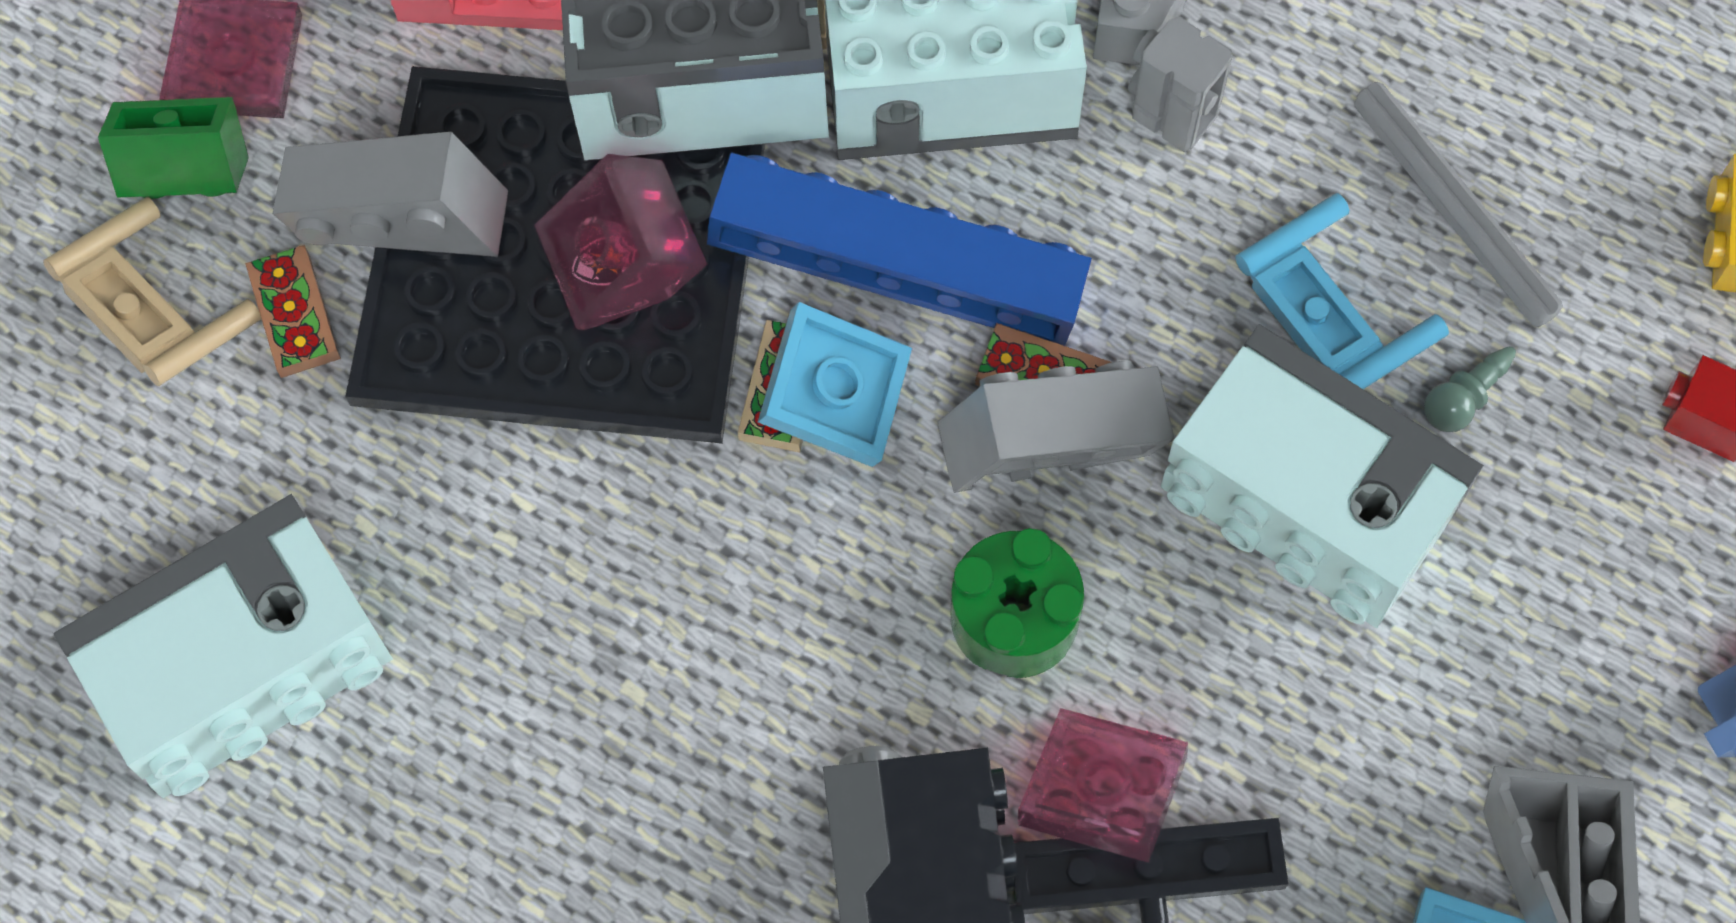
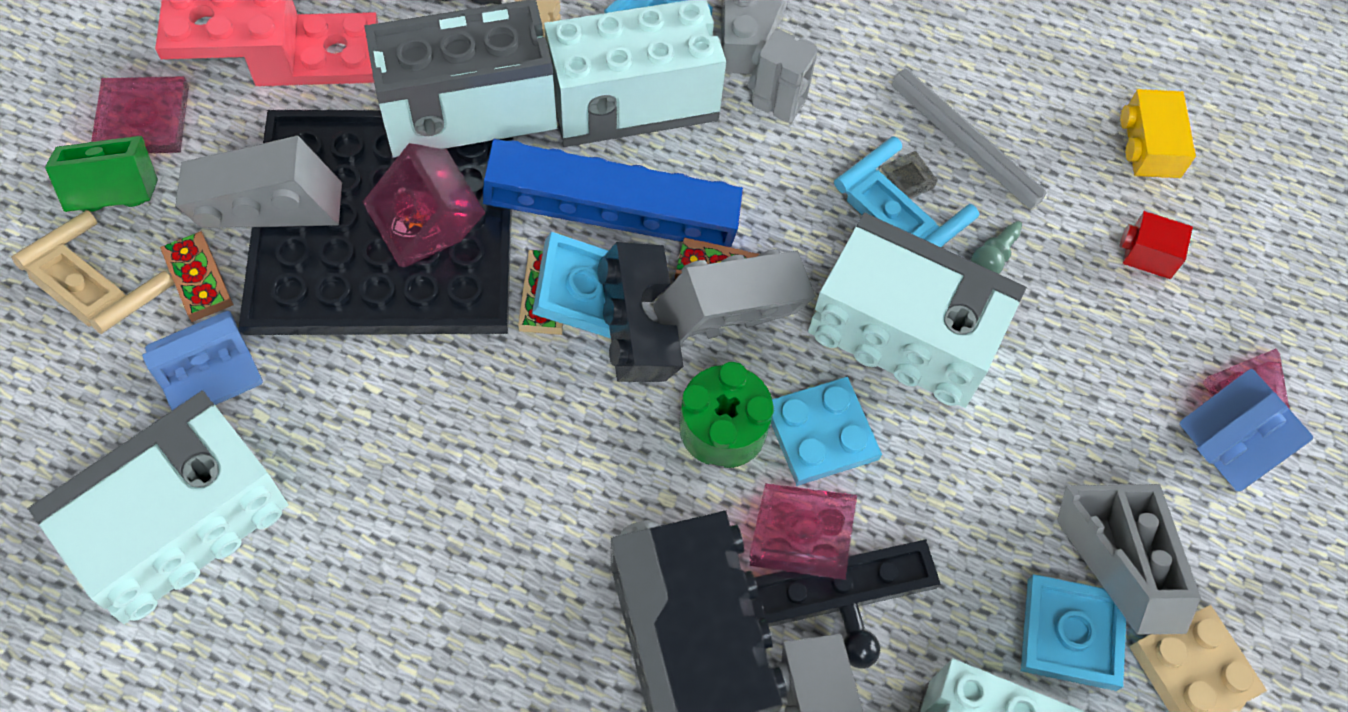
camera: 15 degrees left, 5 degrees down
(292, 443) = (203, 358): none -> medium blue bracket
(905, 485) = (638, 345): none -> black arch
(1158, 639) = (823, 431): none -> medium azure plate
(1354, 257) = (910, 175): none -> clear smoke tile

